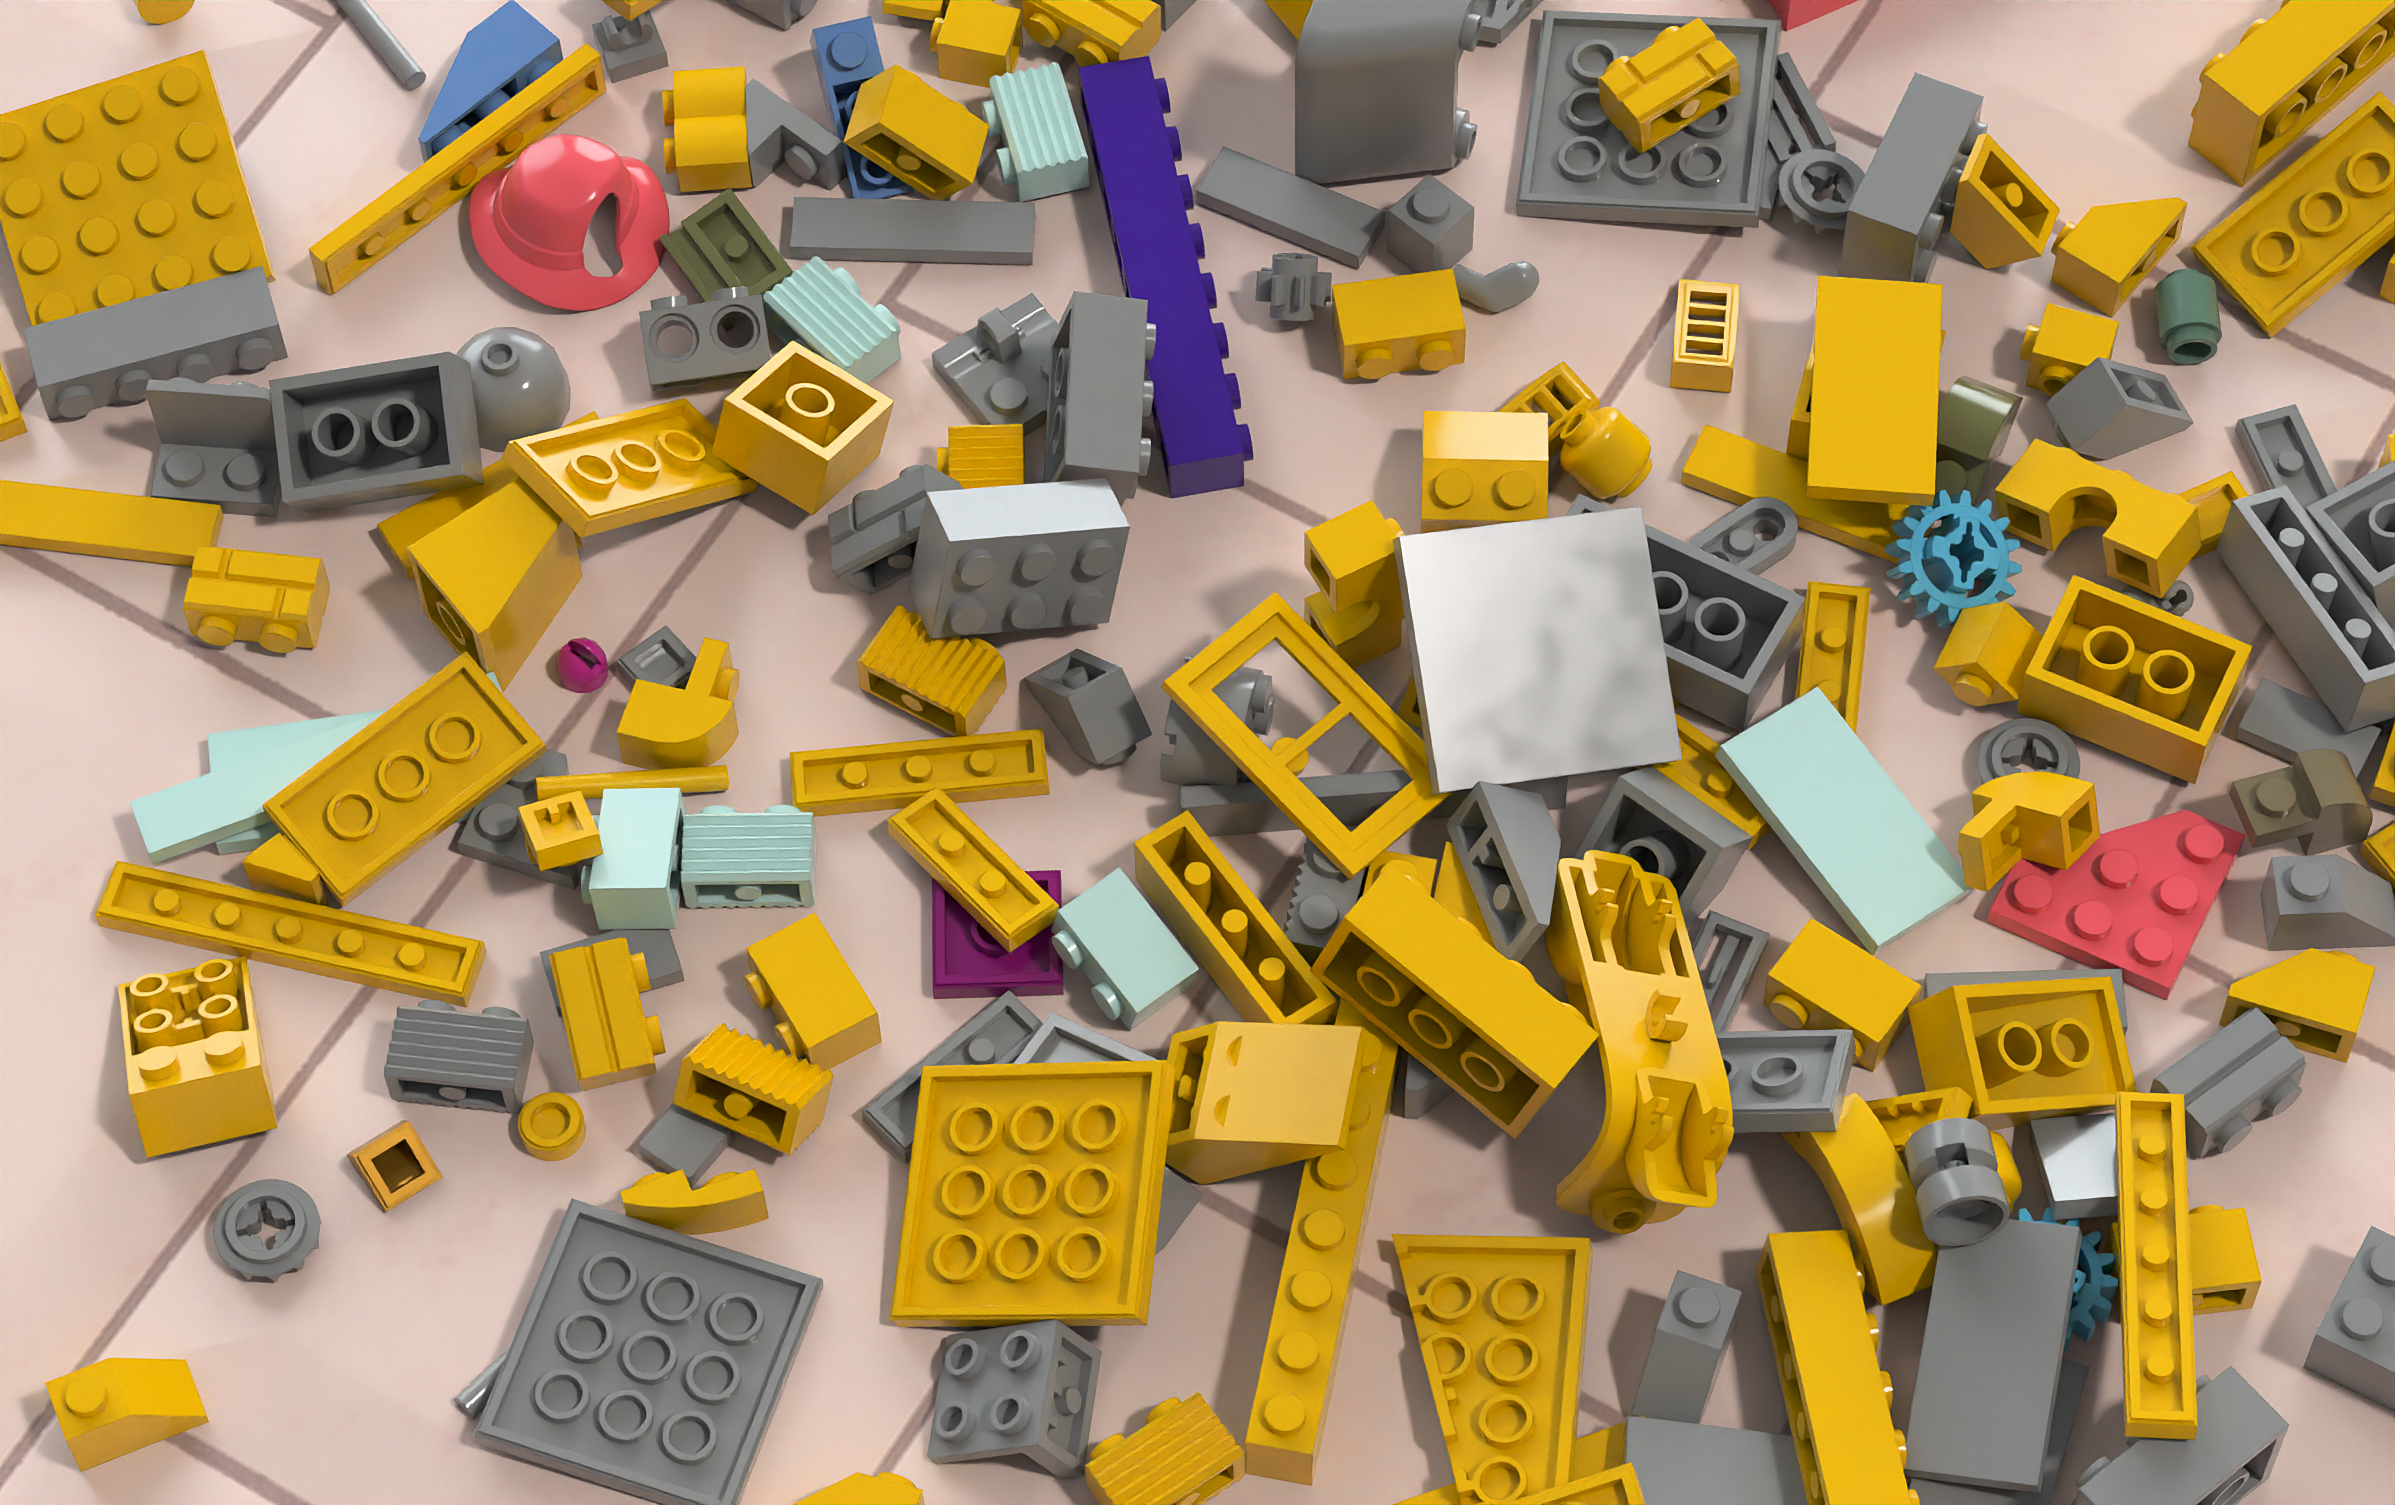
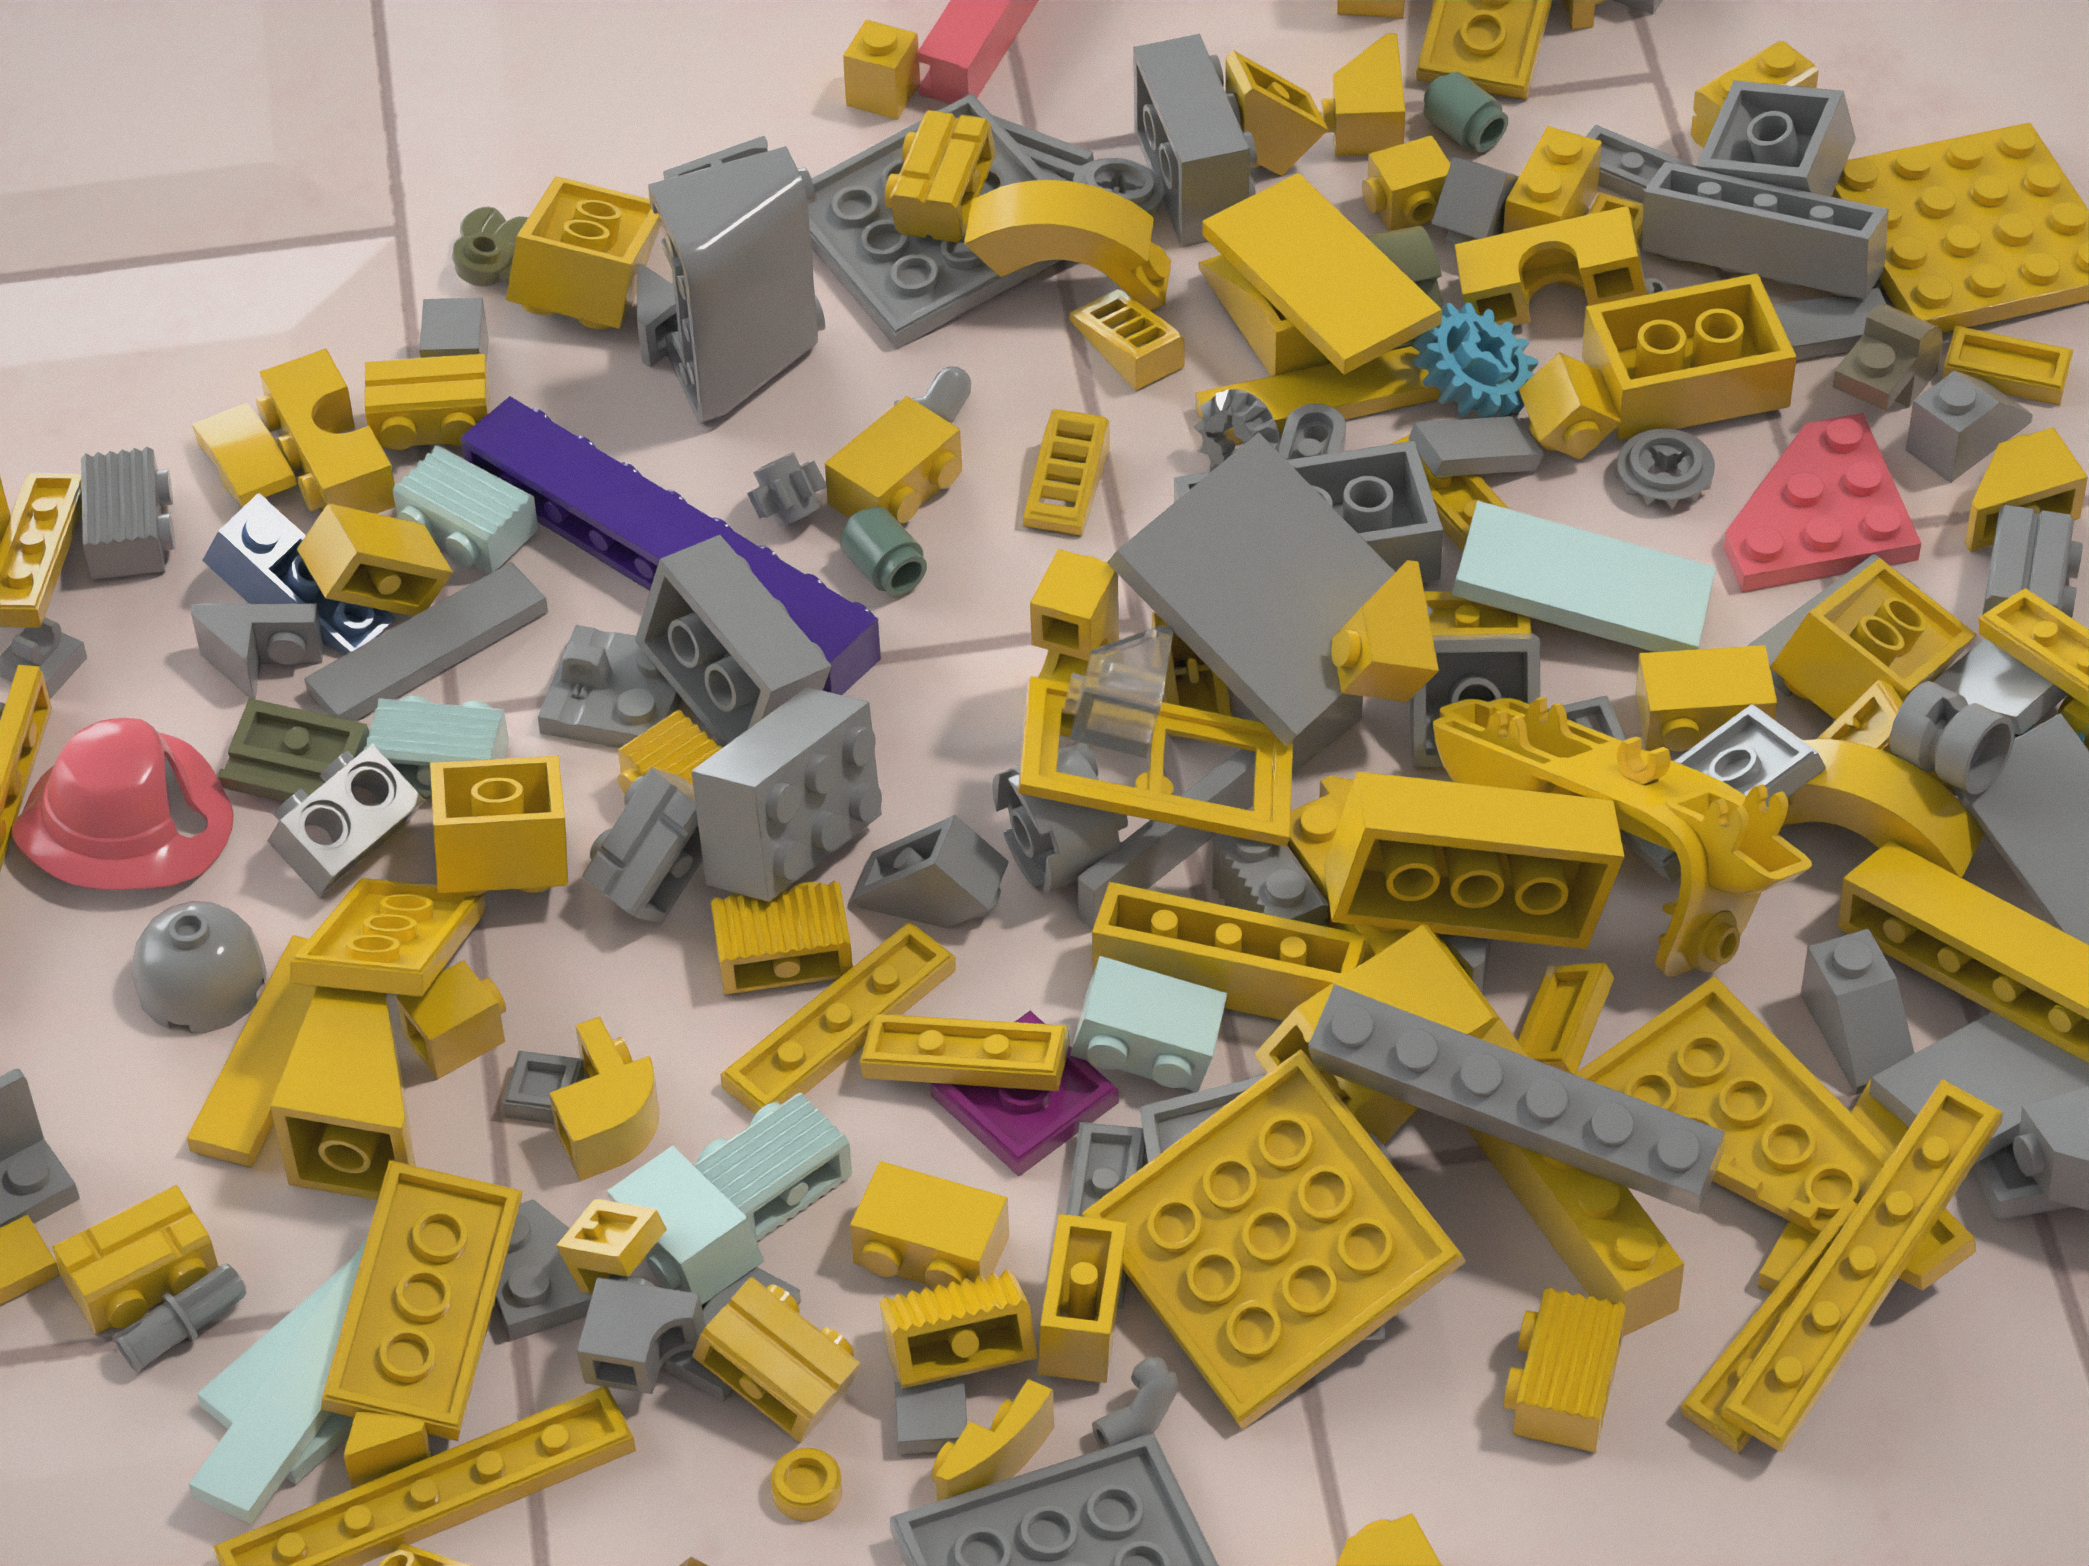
camera: 40 degrees left, 10 degrees down
(248, 664) = (180, 1316): none -> light grey axle
(376, 432) = (134, 1053): light grey brick -> none
(459, 1057) = (681, 1481): light grey brick -> none
(518, 915) = (635, 1331): none -> light grey brick
(575, 673) = (473, 1129): dark pink hinge -> none
(592, 785) = (560, 1220): yellow bar -> none
(640, 566) = (453, 1019): none -> yellow brick
(709, 129) = (182, 672): yellow brick -> none
(836, 1256) = (1148, 1408): none -> light grey arm
(857, 1134) = (1082, 1298): none -> yellow slope
(1015, 1394) = (1392, 1407): light grey bracket -> none
(1284, 1227) = (1517, 1099): none -> light grey brick
(1291, 207) = (719, 443): light grey tile -> none
(1319, 394) = (883, 551): none -> sand green brick
(1321, 658) = (1121, 692): none -> clear slope
(1430, 227) = (851, 385): light grey brick -> none
(1448, 1183) = (1565, 1014): none -> yellow tile
(1483, 469) = (1073, 507): yellow slope -> none
(1509, 861) = (1388, 742): light grey slope -> none
(1589, 759) = (1388, 641): none -> yellow slope
(1605, 452) = (1148, 450): yellow head -> none
(1687, 490) = (1233, 410): none -> light grey gear
(1724, 210) = (1070, 223): none -> yellow arch
(1880, 634) = (1476, 446): none -> light grey tile
(2029, 818) = (1715, 492): yellow brick -> none
(2182, 441) = (1555, 182): none -> yellow brick

